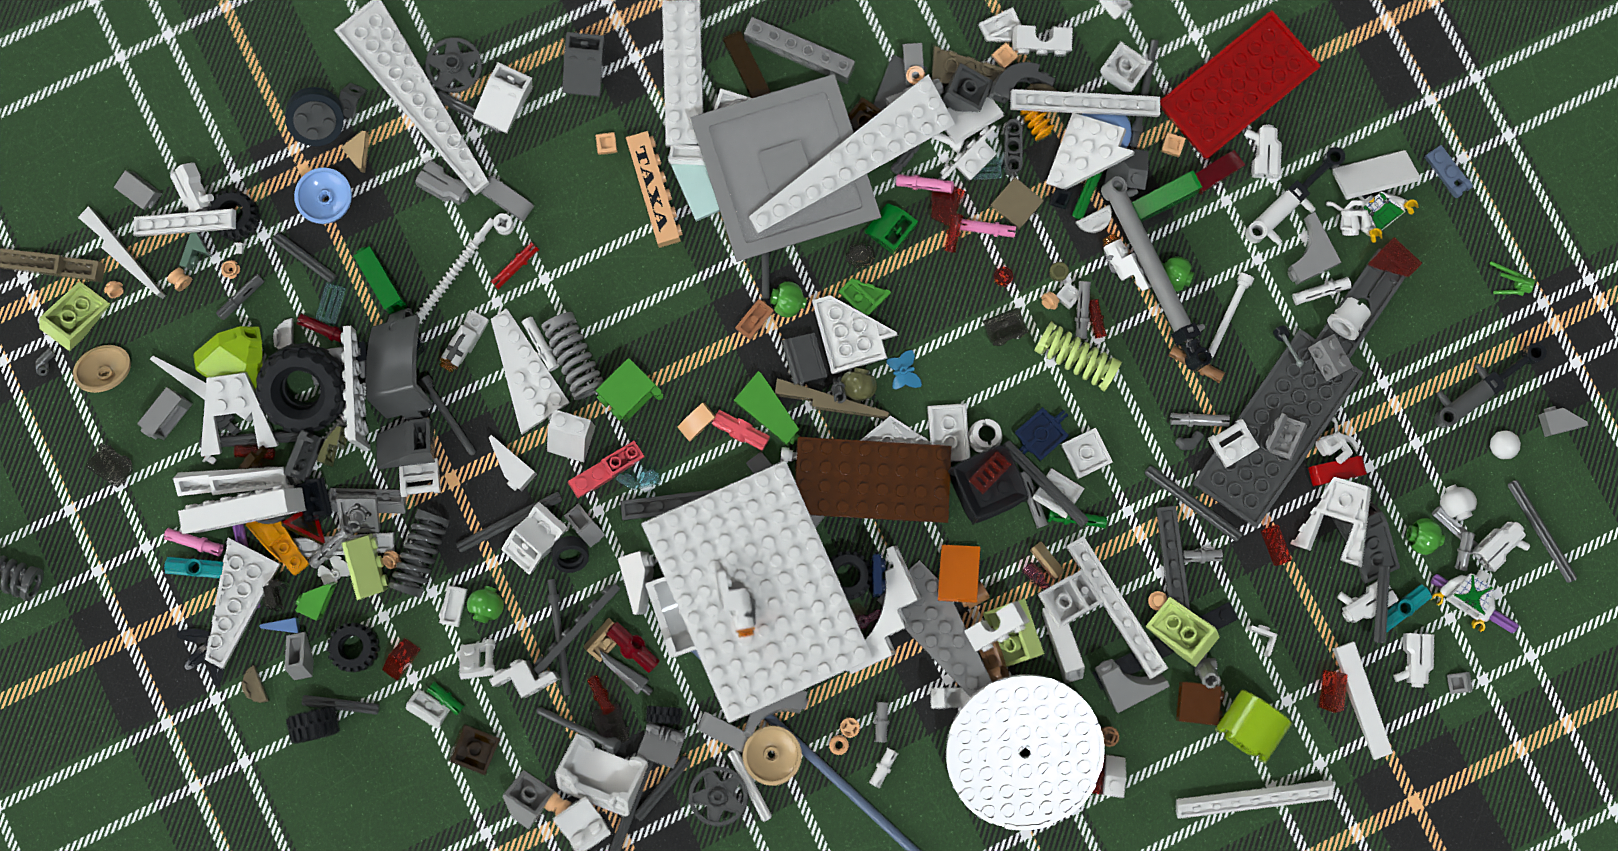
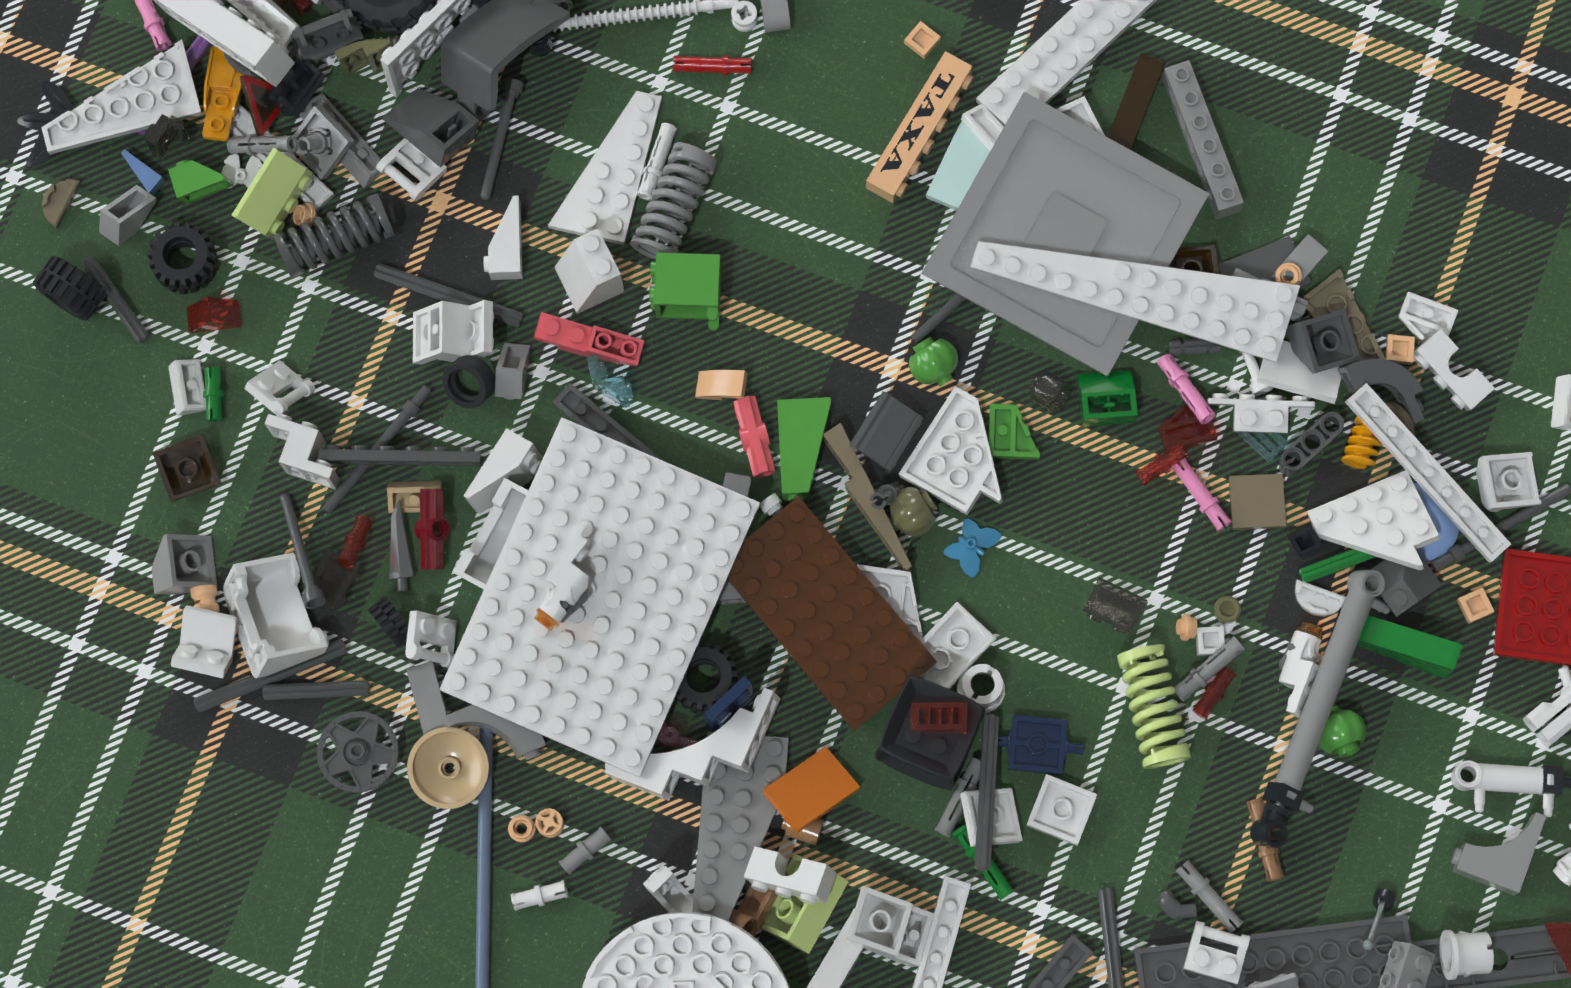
camera: 50 degrees right, 5 degrees down
(184, 567) = (116, 28): teal piece -> none
(453, 606) = (313, 318): white tile -> none
(463, 341) = (588, 85): white plate -> none
(485, 604) = (342, 347): bright green plant -> none
(661, 744) = (359, 647): light grey hinge -> none
(688, 697) = (431, 630): none -> white plate
(751, 787) = (397, 778): white axle -> none
(754, 319) = (881, 347): nougat plate -> none
(1003, 276) = (1167, 557): clear red tile -> none
(1035, 575) = (883, 870): clear pink piece -> none
(1047, 560) = (911, 870): tan slope -> none
(1219, 171) = (1492, 677): dark red slope -> none
(1244, 281) = (1401, 811): white piece -> none
(1329, 288) = (1469, 901): white pin -> none

